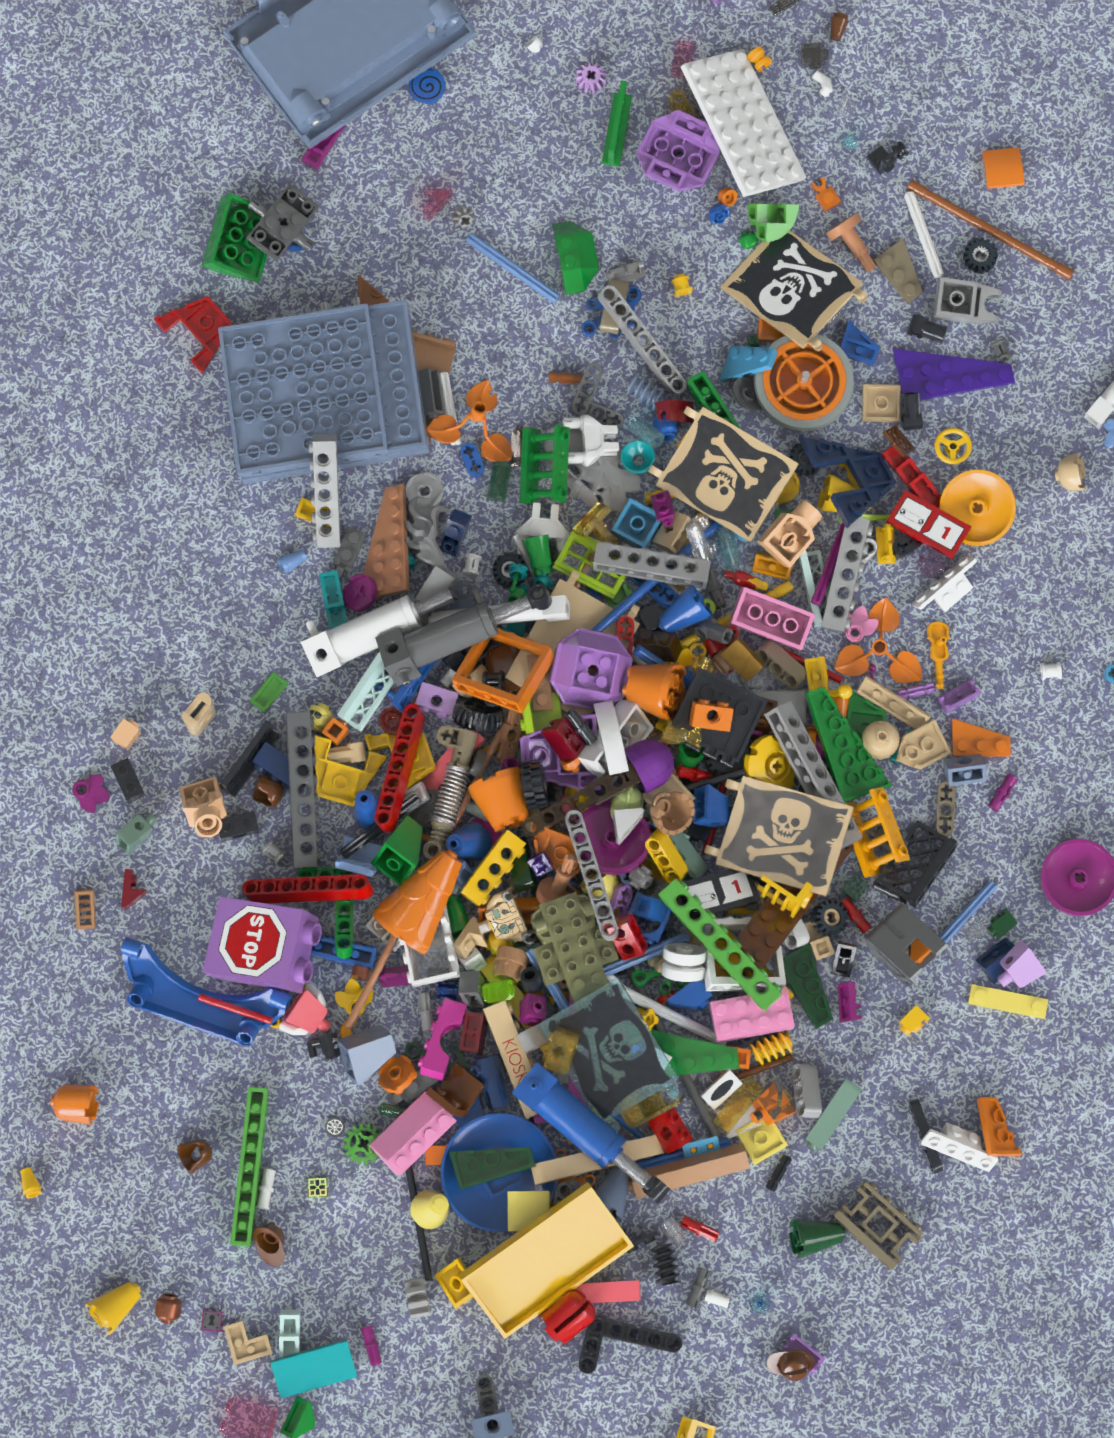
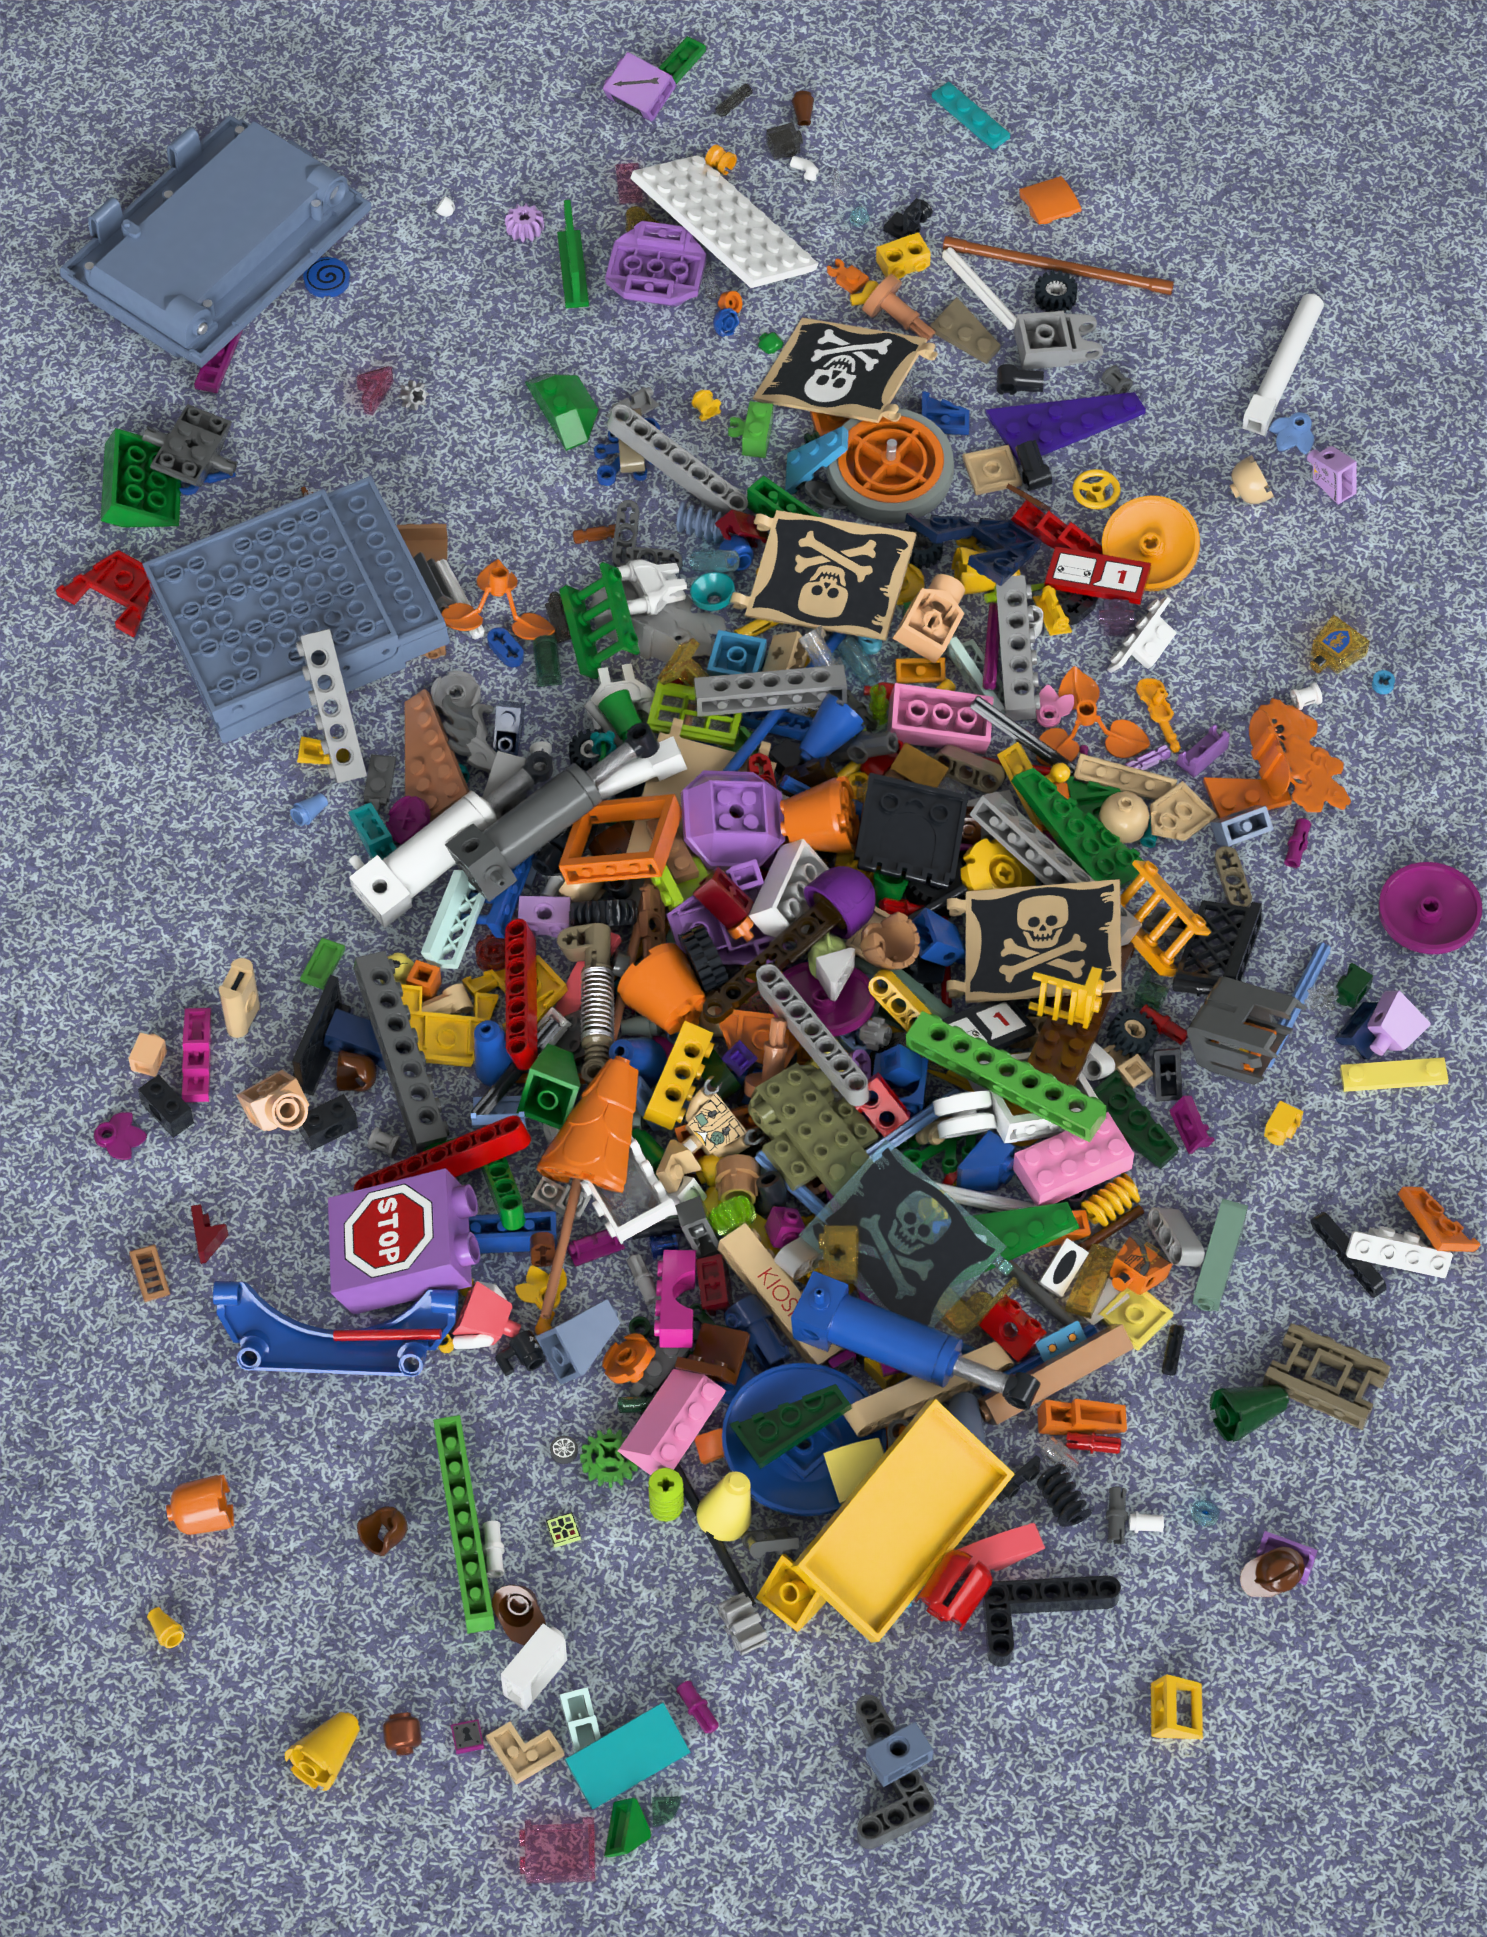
camera: 15 degrees left, 20 degrees down
(130, 838) = (191, 1164): sand green torso -> none
(160, 743) = (196, 1055): none -> dark pink slope
(268, 1288) = (534, 1666): none -> white window
(328, 1411) = (664, 1809): none -> tile
(388, 1180) = (666, 1494): none -> lime piece
(460, 1245) = (780, 1540): none -> dark grey plate
(512, 267) = (491, 435): medium blue axle -> none
(581, 726) = (742, 876): black pin -> none
(611, 737) = (786, 879): white slope -> none
(663, 507) = (764, 630): magenta hinge -> none
(676, 735) = (866, 856): clear yellow animal -> none
(697, 1207) = (1081, 1417): none -> orange slope
(711, 320) = (755, 430): none -> bright green brick
(721, 721) = (891, 831): orange brick -> none
(730, 593) = (879, 704): none -> clear neon green pin
(772, 219) = (792, 312): bright green brick -> none
(827, 651) = (1019, 733): none -> axle
(836, 216) = (861, 298): none -> yellow arm
(871, 185) = (903, 256): none -> yellow brick
(967, 67) = (971, 115): none -> teal plate
(1032, 727) = (1307, 762): none -> orange plant
(1088, 635) = (1337, 646): none -> clear yellow torso

